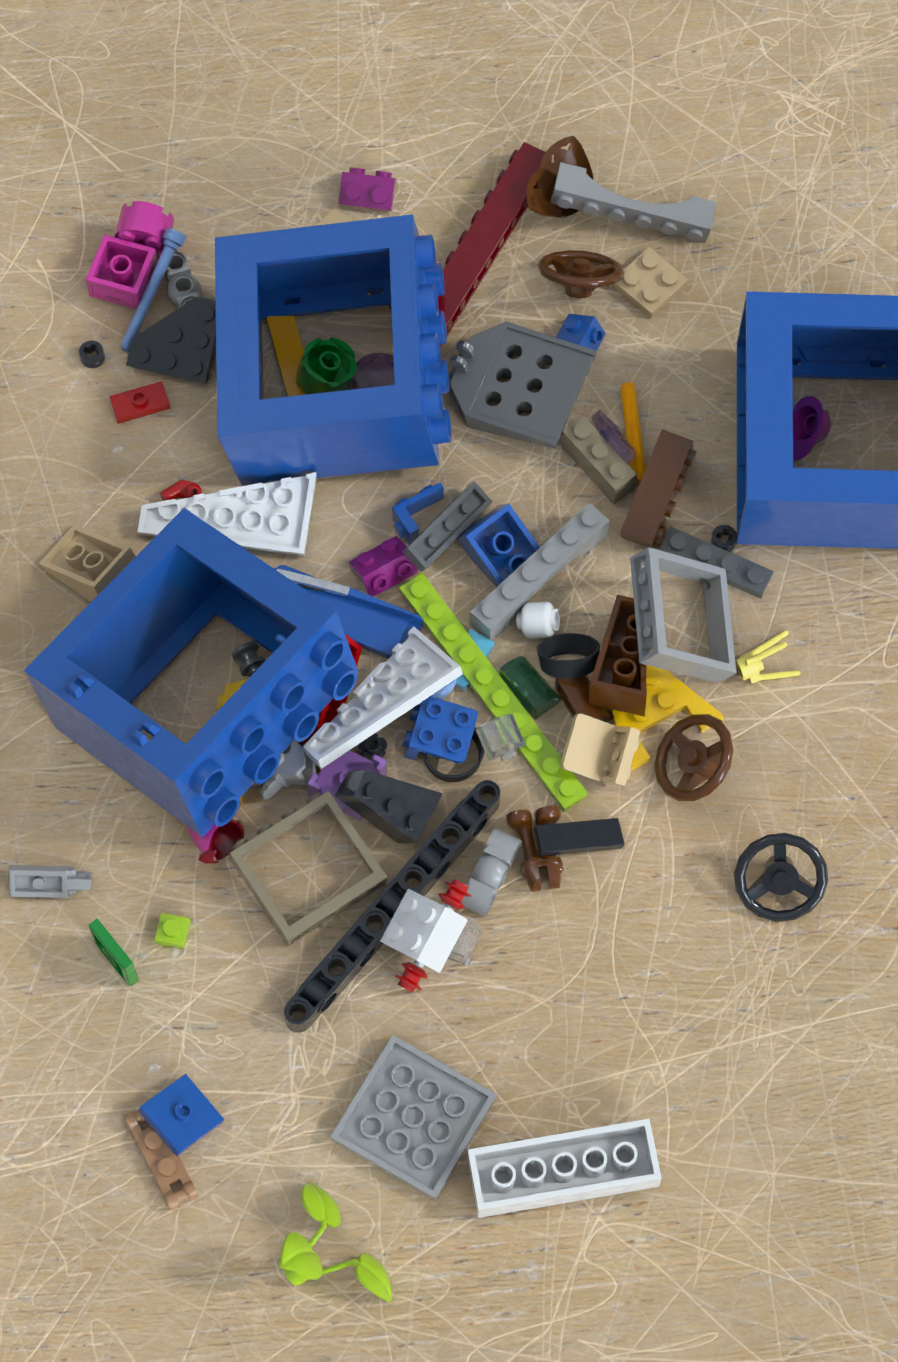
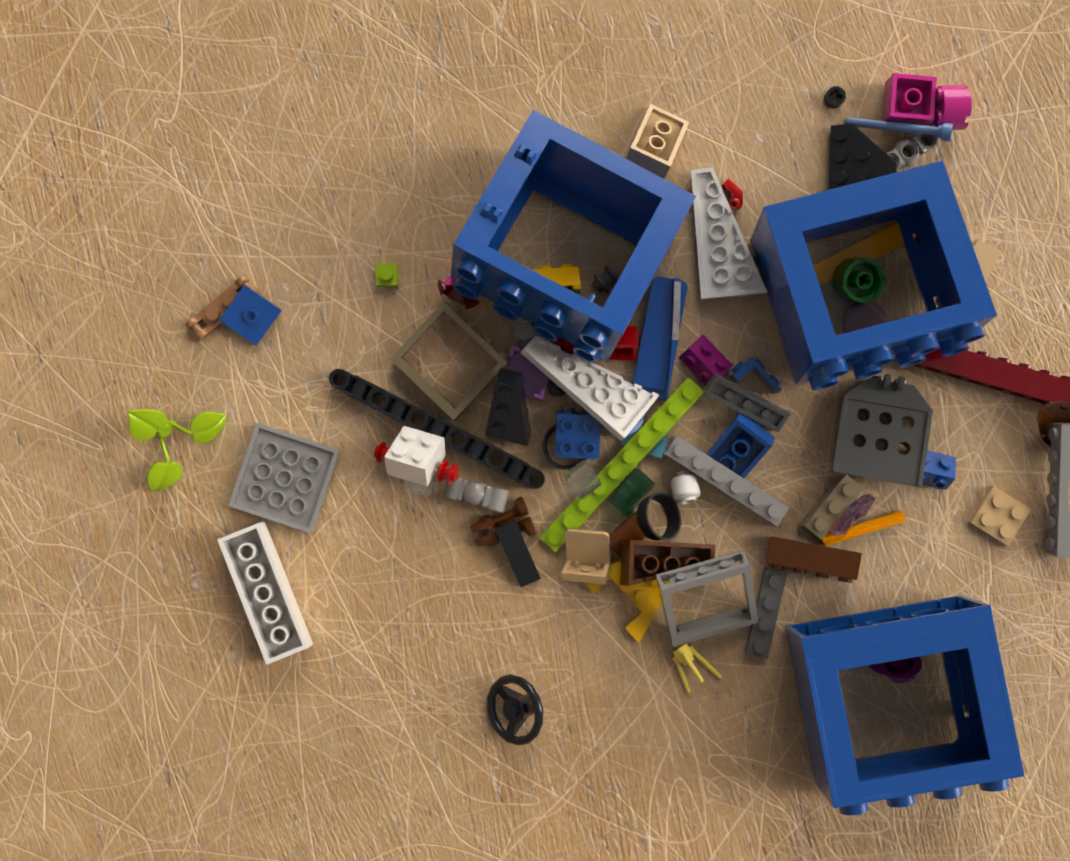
camera: 75 degrees right, 20 degrees up
(47, 881) = (402, 177): light grey hinge -> none
(113, 952) = (354, 236): green tile -> none
(139, 402) = (802, 144): red plate -> none
(367, 190) = (1030, 274): magenta bracket -> none
(579, 274) = (990, 461): reddish brown piece -> none
(695, 759) = (595, 628): reddish brown piece -> none
(724, 530) = (792, 621): black bush -> none

